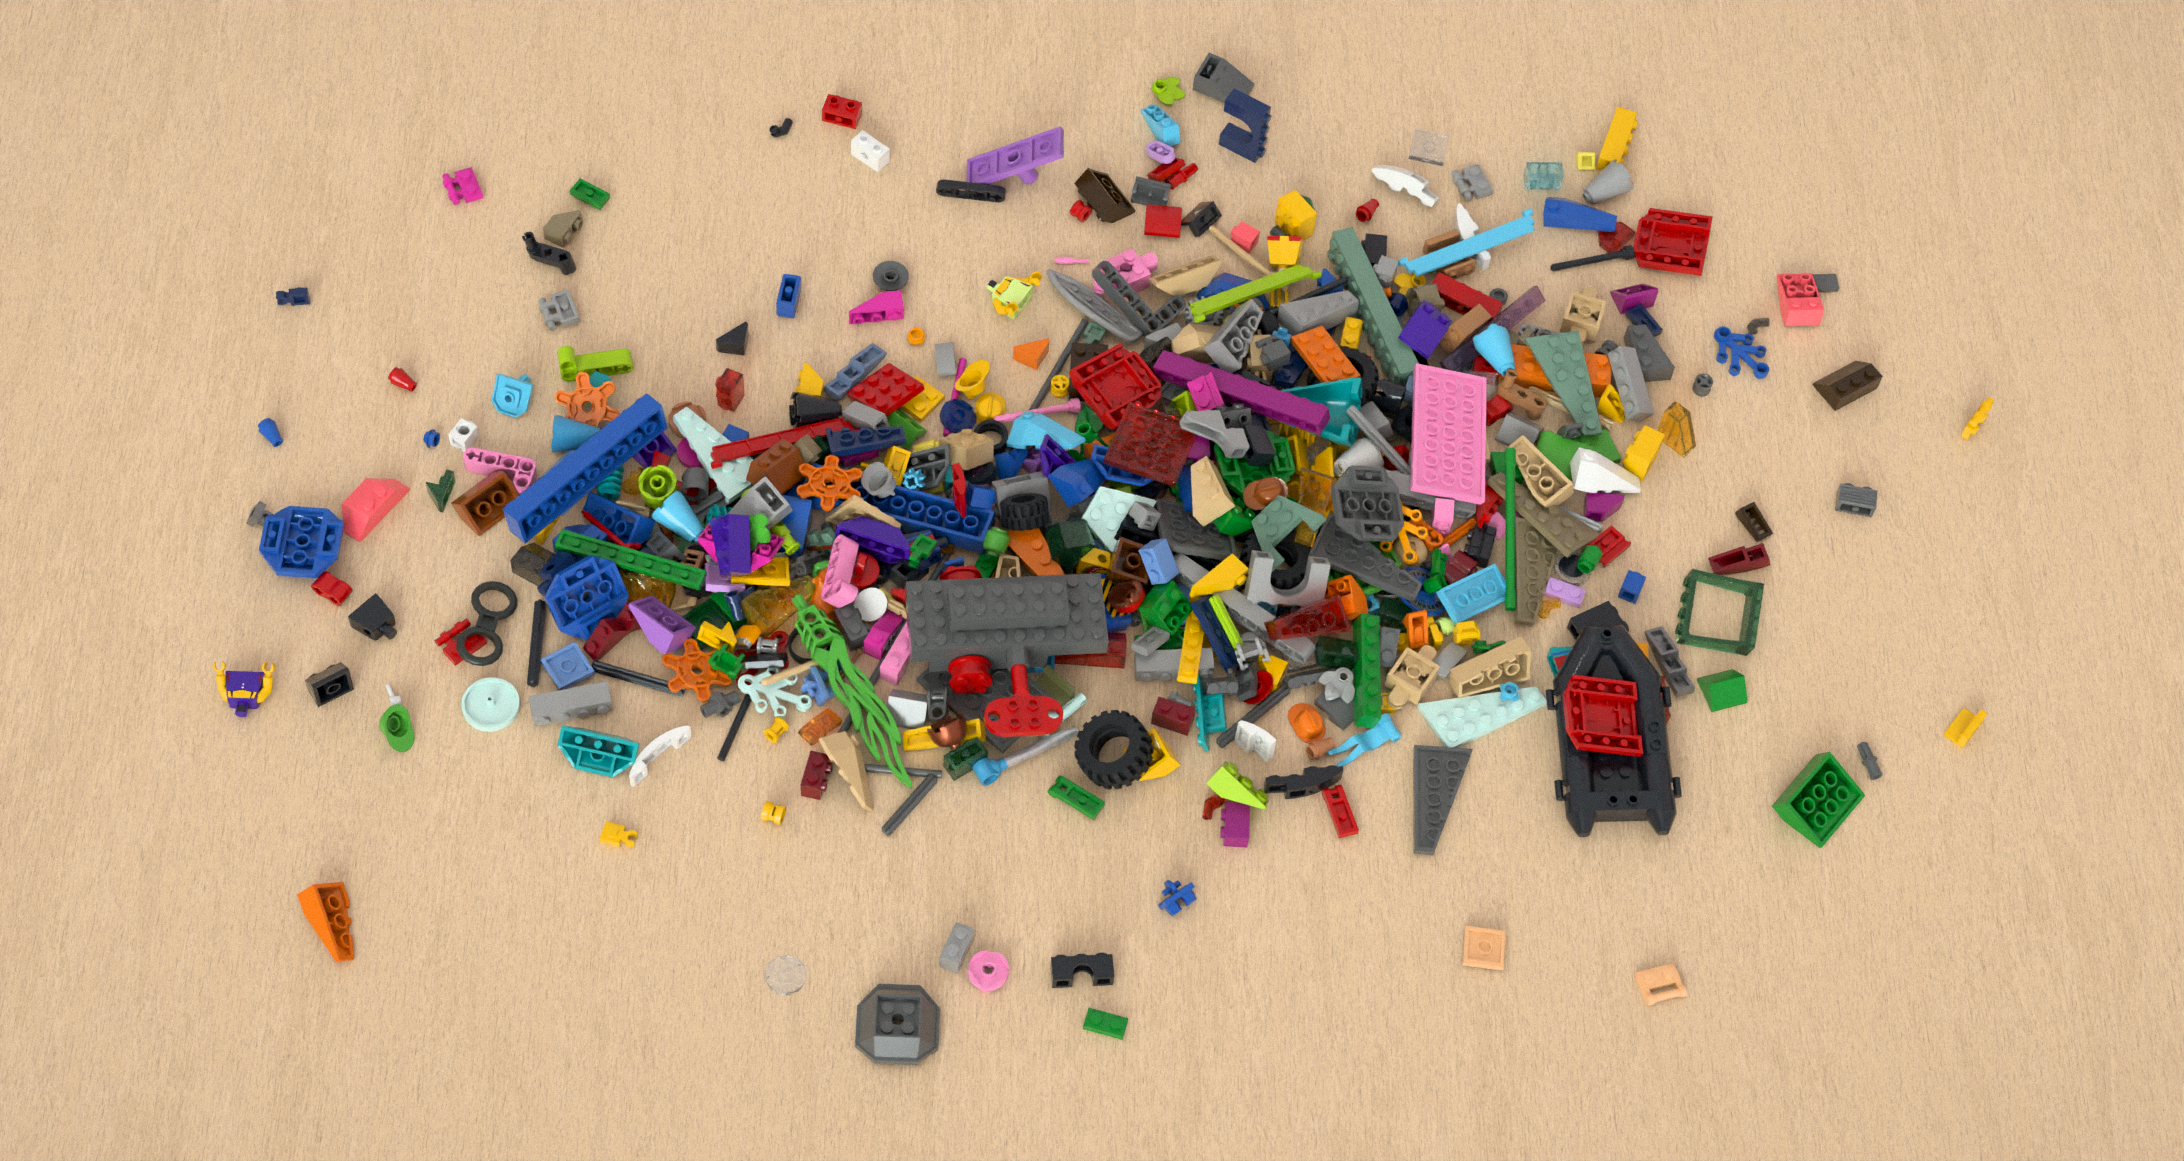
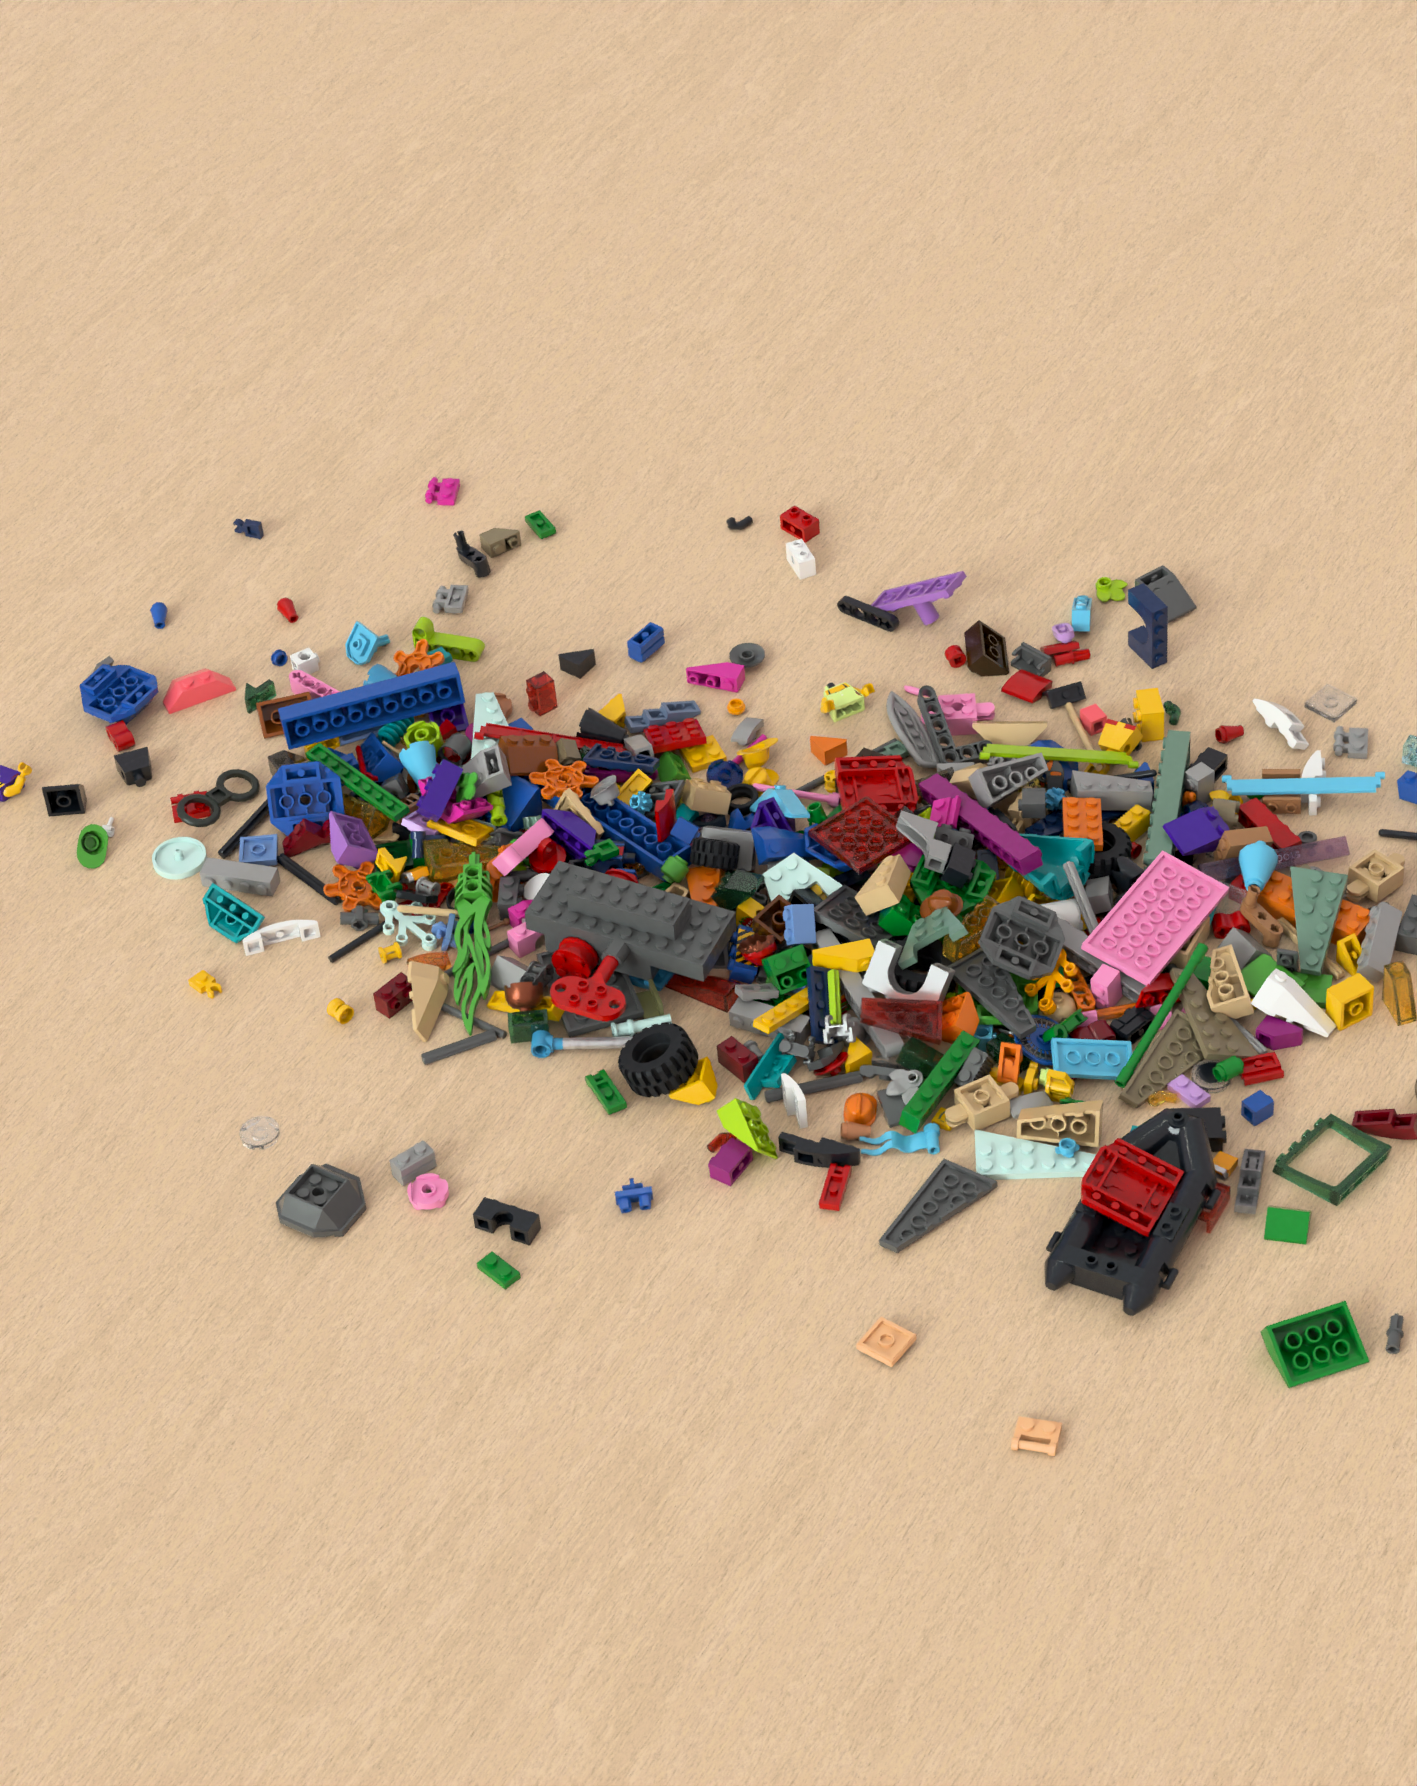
camera: 40 degrees right, 15 degrees down
(1144, 515) = (818, 889): light grey brick -> none

